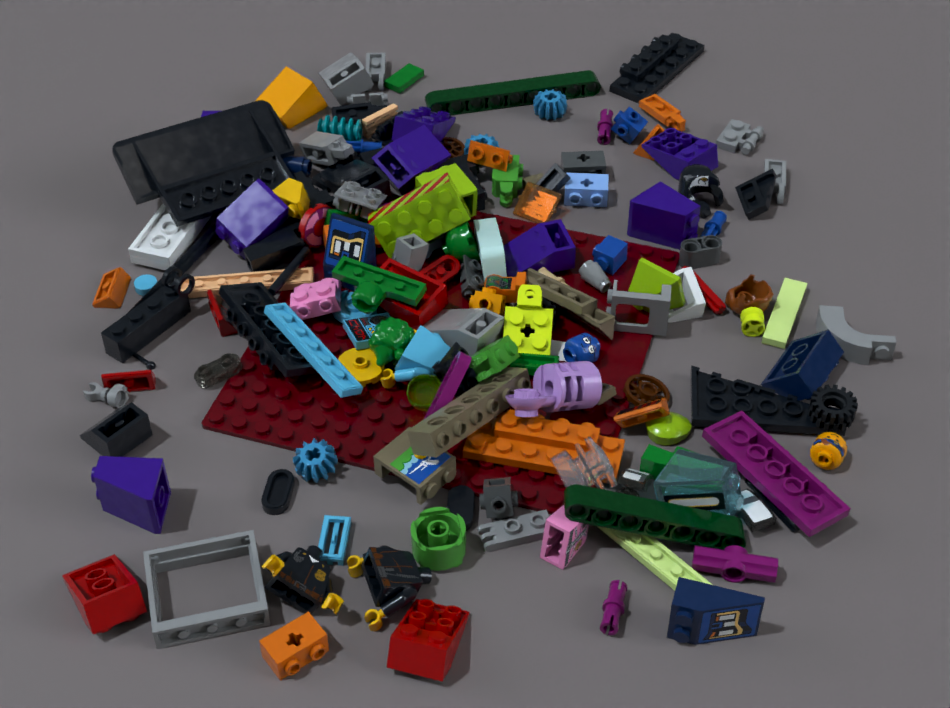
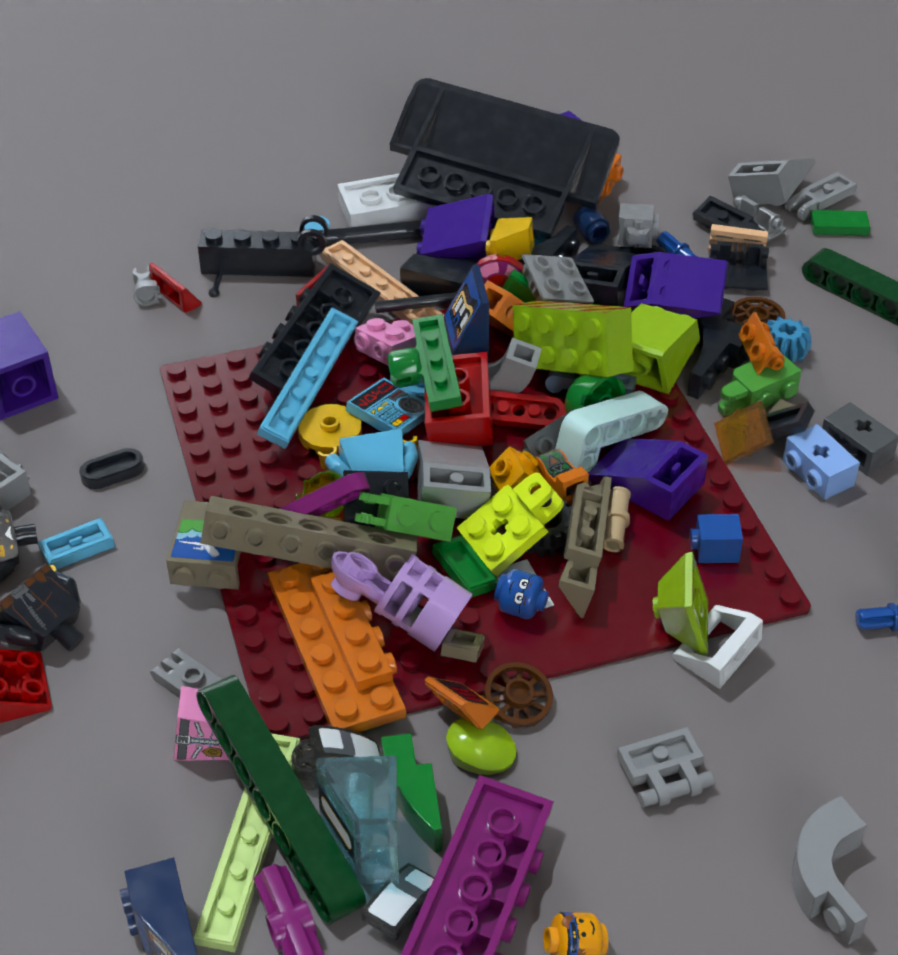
camera: 55 degrees right, 0 degrees up
(112, 289) = (290, 212): orange slope -> none
(119, 431) = (93, 317): black slope -> none
(218, 370) = (237, 335): clear smoke plate -> none
(293, 98) = (687, 164): light orange slope -> none
(315, 460) = (165, 468): dark azure gear -> none
(349, 130) = (683, 220): teal piece -> none
(390, 340) = (365, 416): green animal -> none
(437, 123) = (762, 274): dark purple slope -> none
(438, 539) = (120, 620): bright green brick -> none
(461, 501) = (194, 620): black tile -> none
(498, 498) = (218, 639): dark grey brick -> none
(585, 469) = (293, 685): clear wheel -> none
(595, 276) = (667, 543): light grey cone -> none
(613, 607) = (137, 833): magenta pin -> none
(658, 305) = (650, 627): light grey window -> none
(663, 216) = (836, 550): dark purple slope -> none
(700, 251) = (826, 624): dark grey beam -> none
(710, 297) = (761, 663): red axle -> none
(719, 398) = (595, 825): black wing -> none
(735, 359) = (661, 757): none -> light grey plate
(749, 294) = (787, 716): dark orange hair -> none
(752, 321) = (748, 741): neon yellow wheel -> none
(784, 313) = (811, 771): yellowish green tile -> none
(804, 365) = (717, 841): dark blue slope -> none
(832, 418) = (645, 923): black tyre -> none

